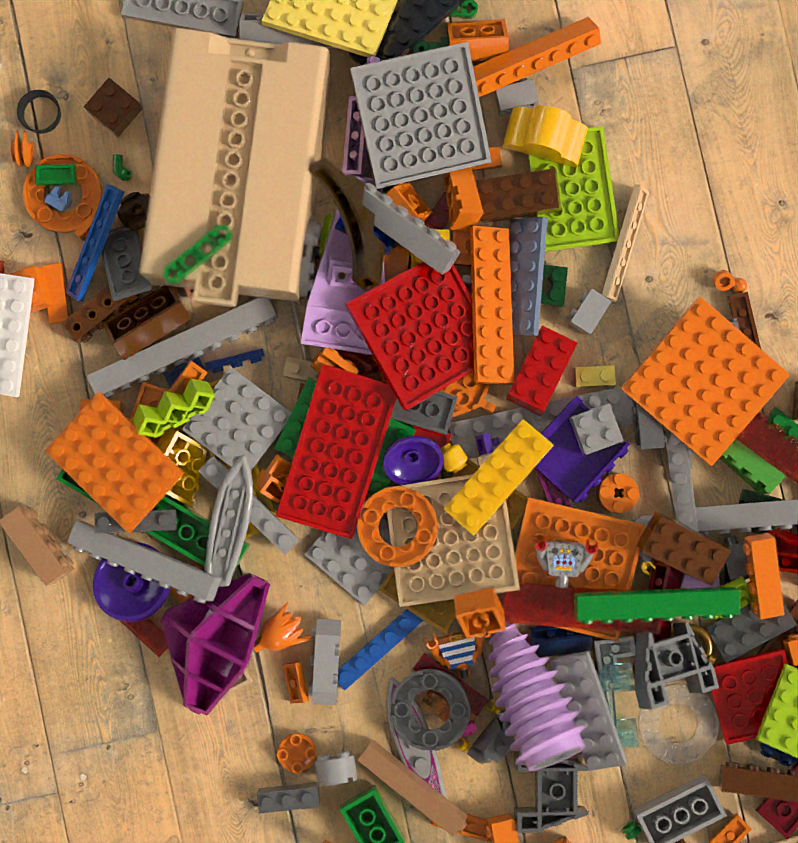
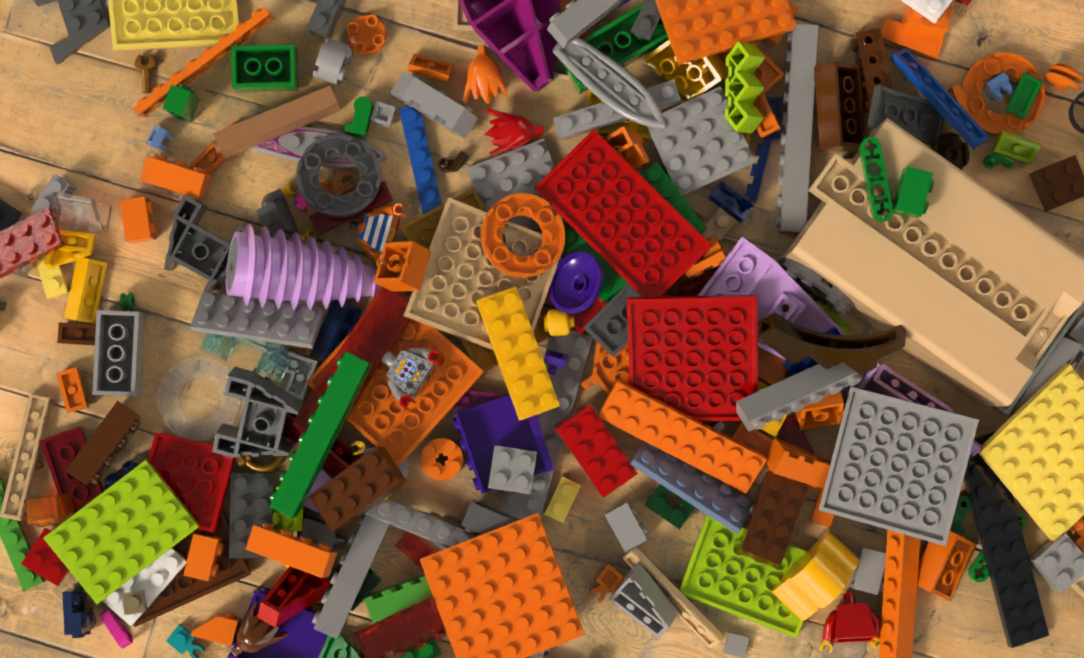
camera: 125 degrees right, 0 degrees up
(101, 158) = (1016, 147): none -> lime plate
(192, 217) = (913, 192): none -> green brick
(274, 369) = (731, 202): none -> clear blue plate
(313, 584) = (511, 131): none -> red piece
(356, 701) = (383, 114): none -> light grey plate
(367, 618) = (453, 165): none -> dark brown arm
(368, 717) = (361, 119): none -> green leg
(568, 88) = (851, 624): none -> red torso
(635, 172) = (736, 644): none -> light grey tile
(641, 303) = (608, 580): none -> orange plate
(642, 264) = (644, 601): none -> light grey wedge
(702, 475) = (414, 548): none -> clear red plate

